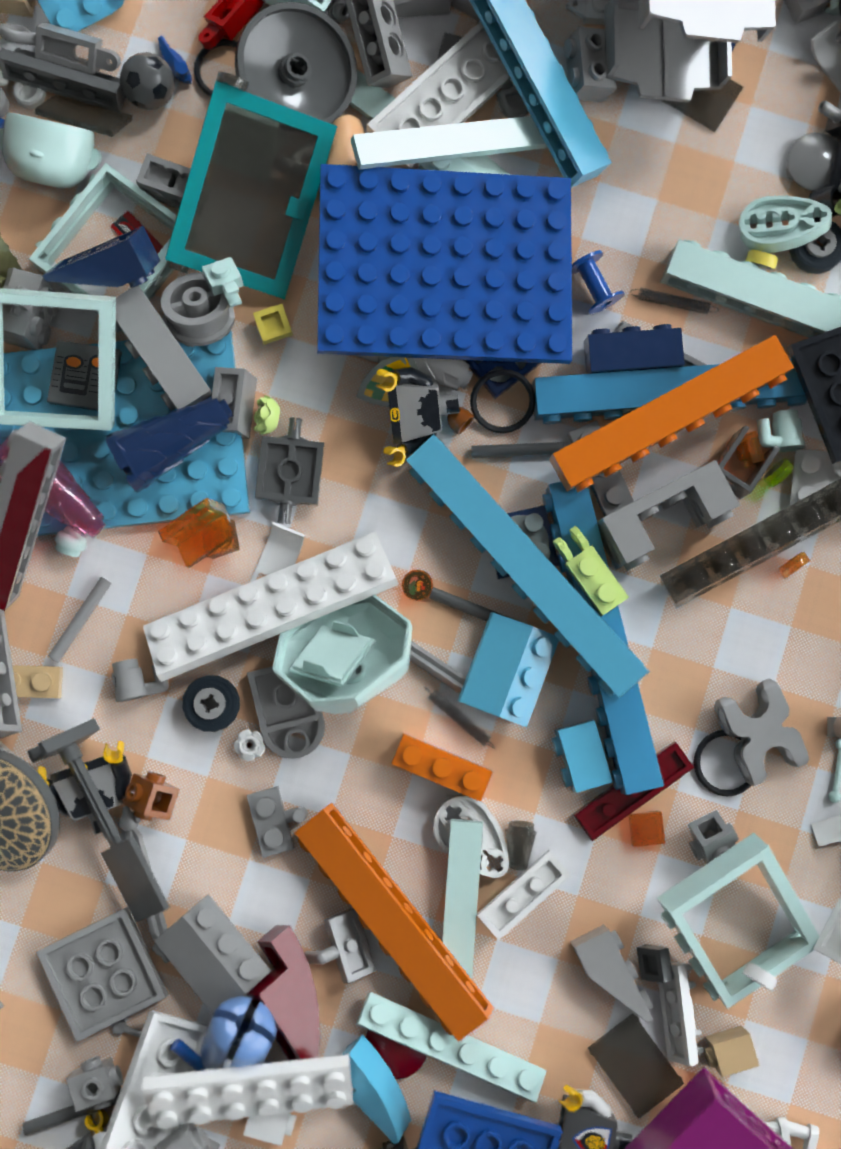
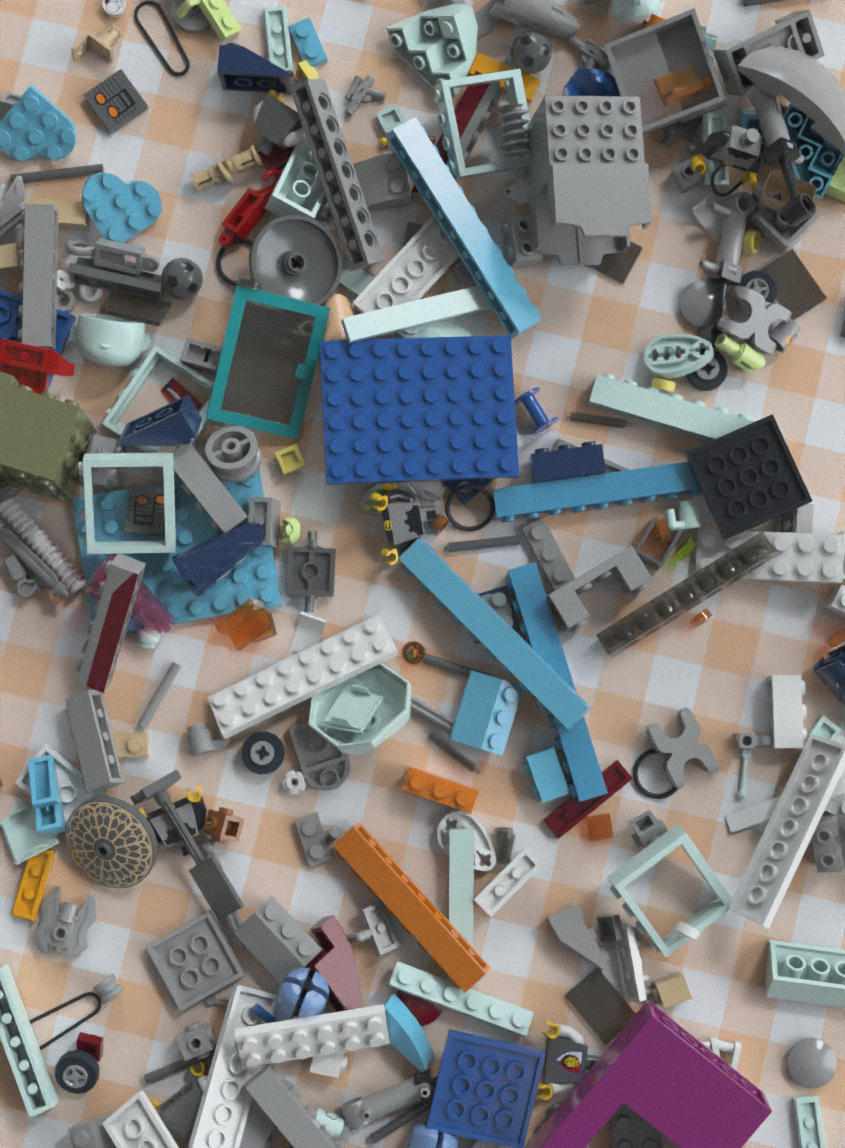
camera: 10 degrees right, 0 degrees up
(175, 61) = (200, 259): blue bar -> none
(224, 278) = (252, 431): light aqua plate -> none
(591, 573) = (544, 637): yellowish green hinge -> none
(671, 413) = (596, 511): orange brick -> none

